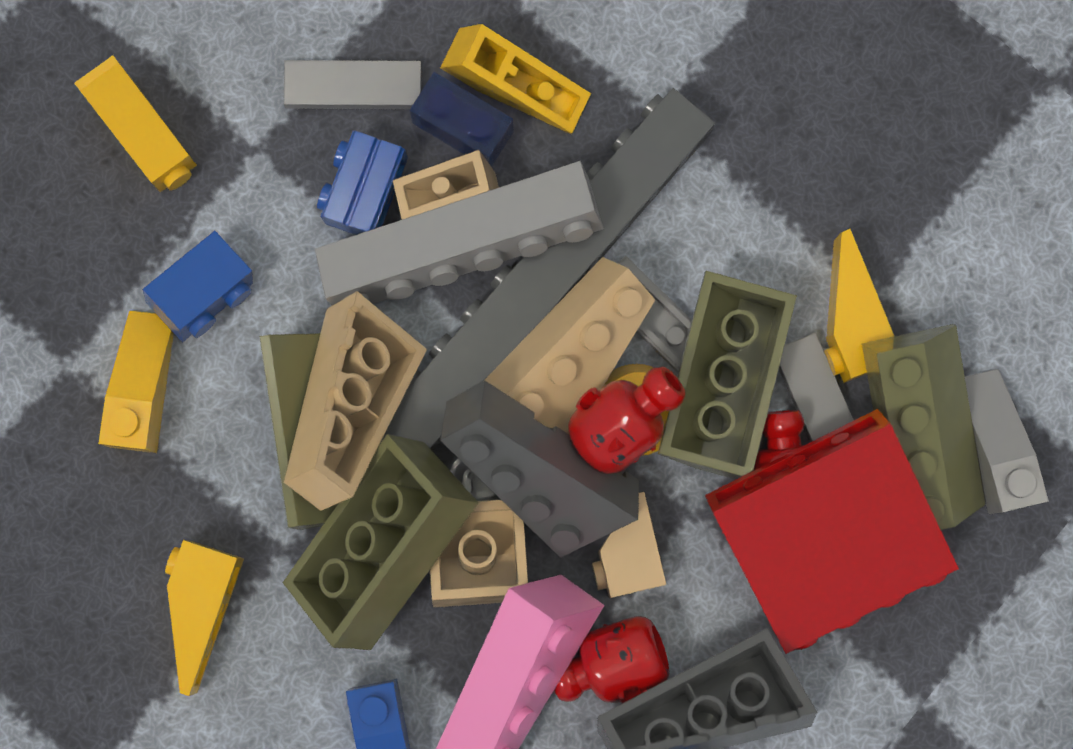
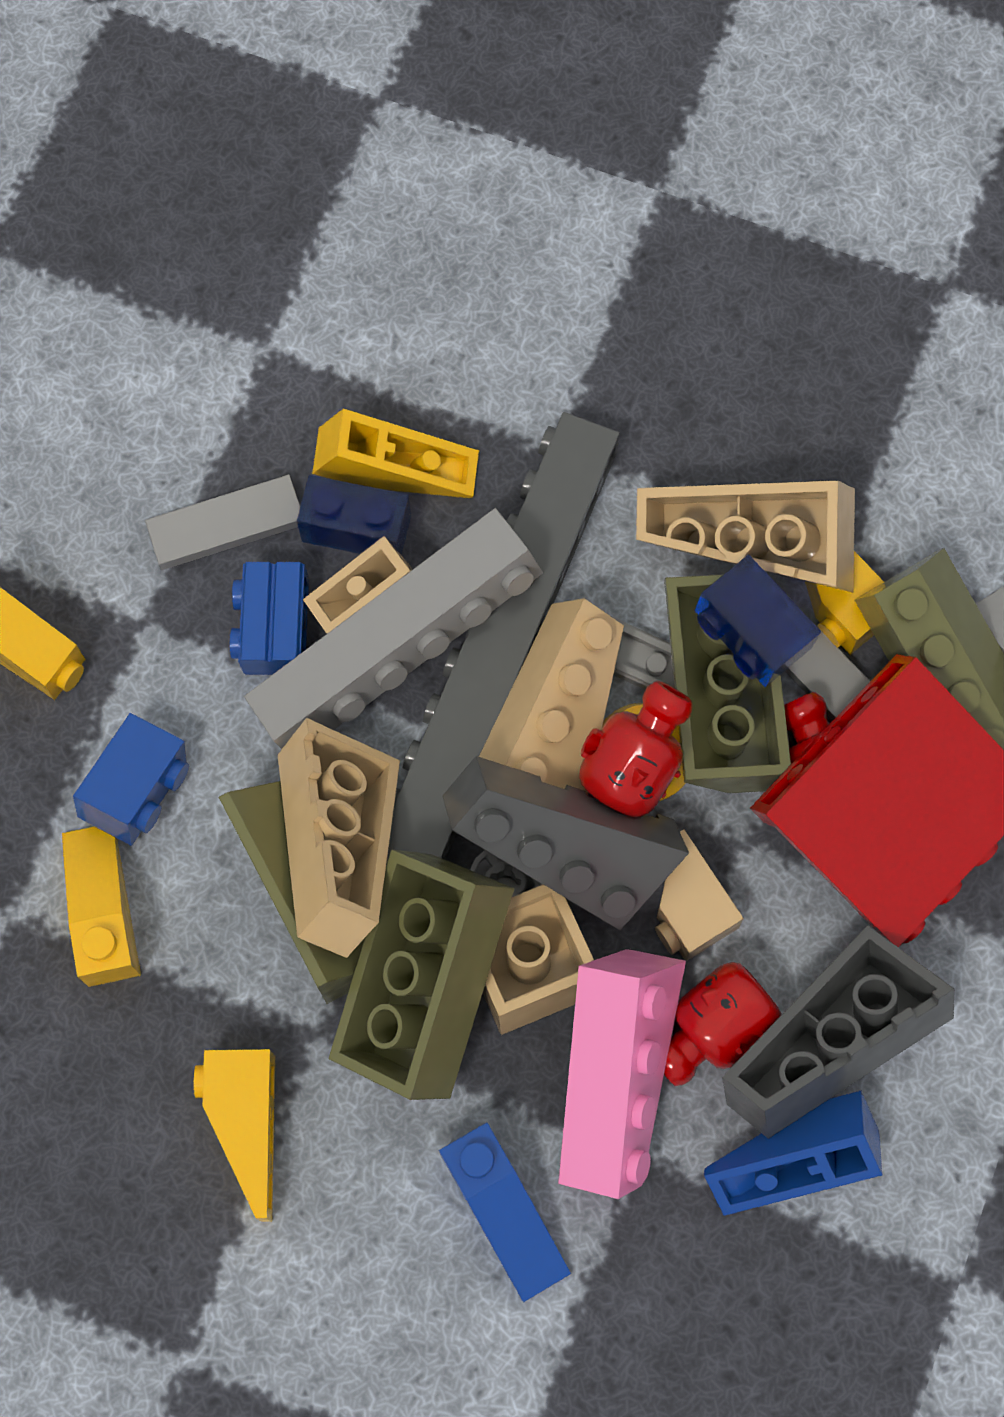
camera: 15 degrees left, 10 degrees down
(767, 338) = (755, 621): none -> clear blue brick
(812, 259) = (784, 527): none -> tan wedge

